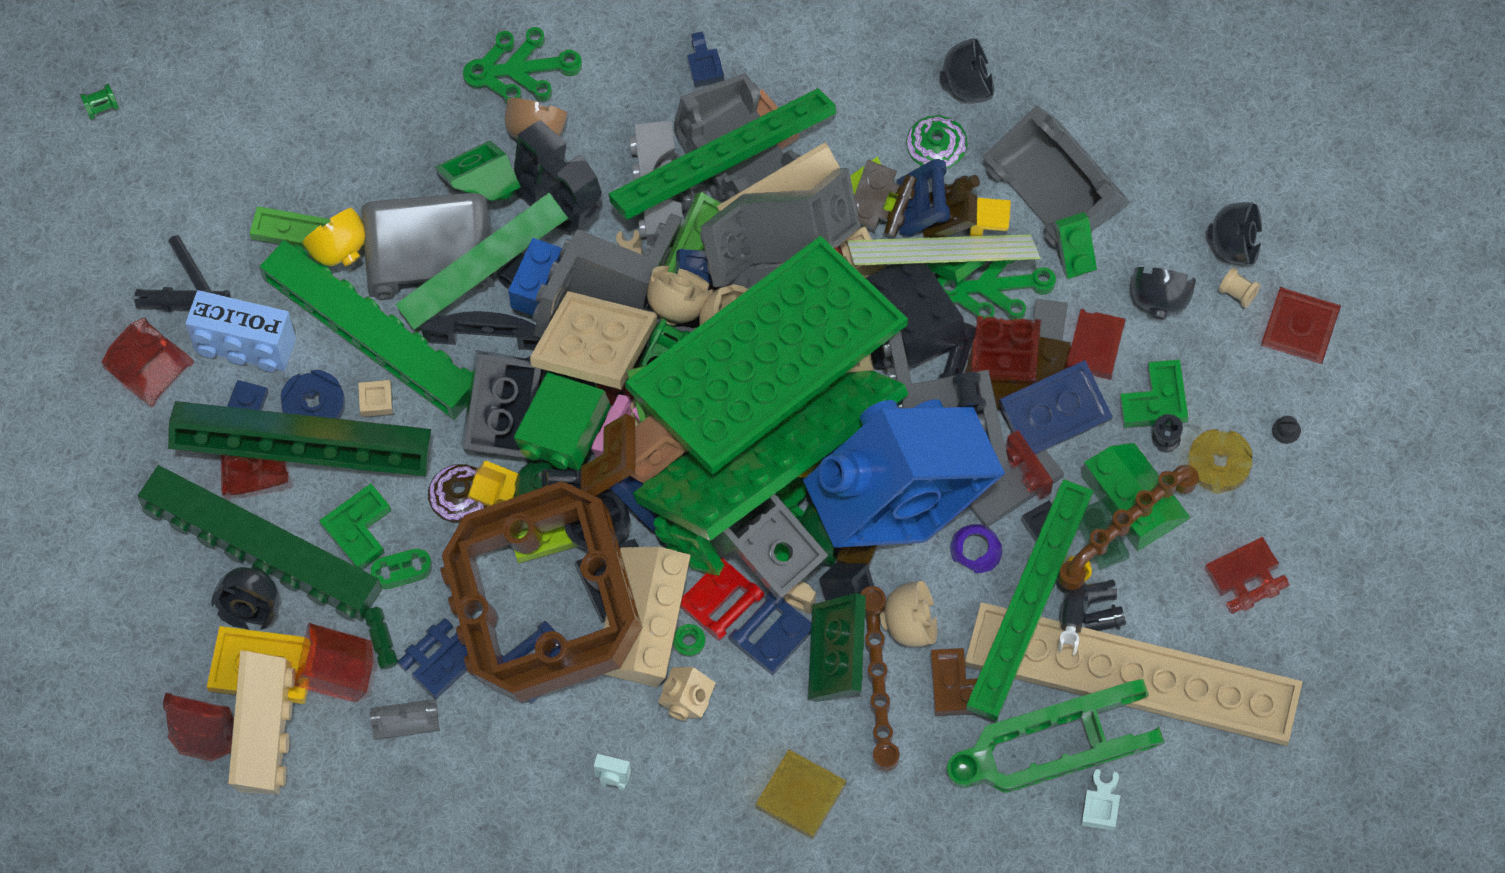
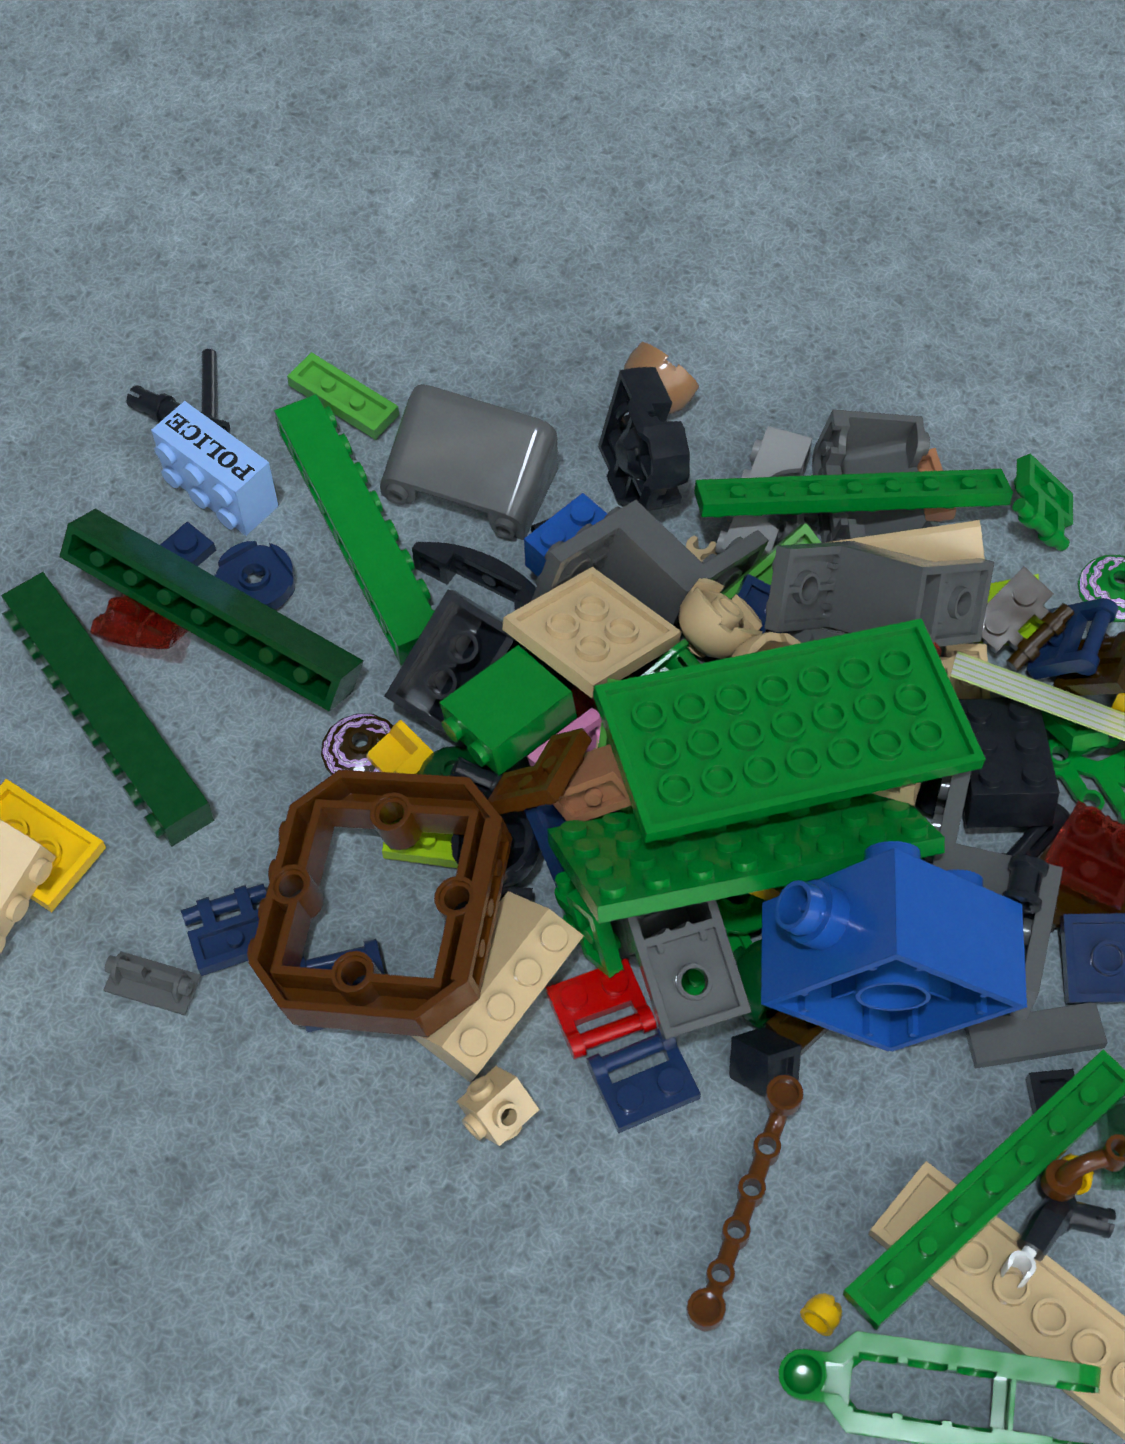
camera: 25 degrees right, 5 degrees down
(99, 101) = (201, 196): green bush -> none
(145, 361) = (102, 460): clear red slope -> none
(242, 593) = (51, 750): black cylinder -> none
(334, 663) = (105, 877): clear red slope -> none
(337, 240) = (371, 413): yellow cylinder -> none
(349, 525) = (217, 727): green plate -> none
(375, 398) = (324, 603): tan plate -> none
(380, 638) = (179, 874): dark green axle -> none
(401, 561) = (247, 805): green beam -> none
(481, 171) = (569, 408): green slope -> none
(481, 261) = (516, 499): green tile -> none
(517, 68) = (673, 322): green plant -> none
(612, 771) = (351, 1163): light aqua plate -> none
(689, 630) = (533, 1029): green plate -> none
(704, 63) = (882, 395): dark blue plate -> none
(800, 794) = (576, 1306): clear yellow plate -> none
(801, 597) = (699, 1049): tan plate -> none
(837, 647) = (711, 1136): dark green plate -> none
(861, 101) = (1043, 502): none -> green plate
(909, 615) = (824, 1136): tan cylinder -> none
(950, 684) = (838, 1248): reddish brown plate -> none
(958, 723) = (822, 1313): none -> yellow hinge
(984, 563) = (953, 1112): dark purple piece -> none
(1035, 475) = (1068, 1026): clear red plate -> none
(1106, 618) = (1084, 1258): black pin -> none

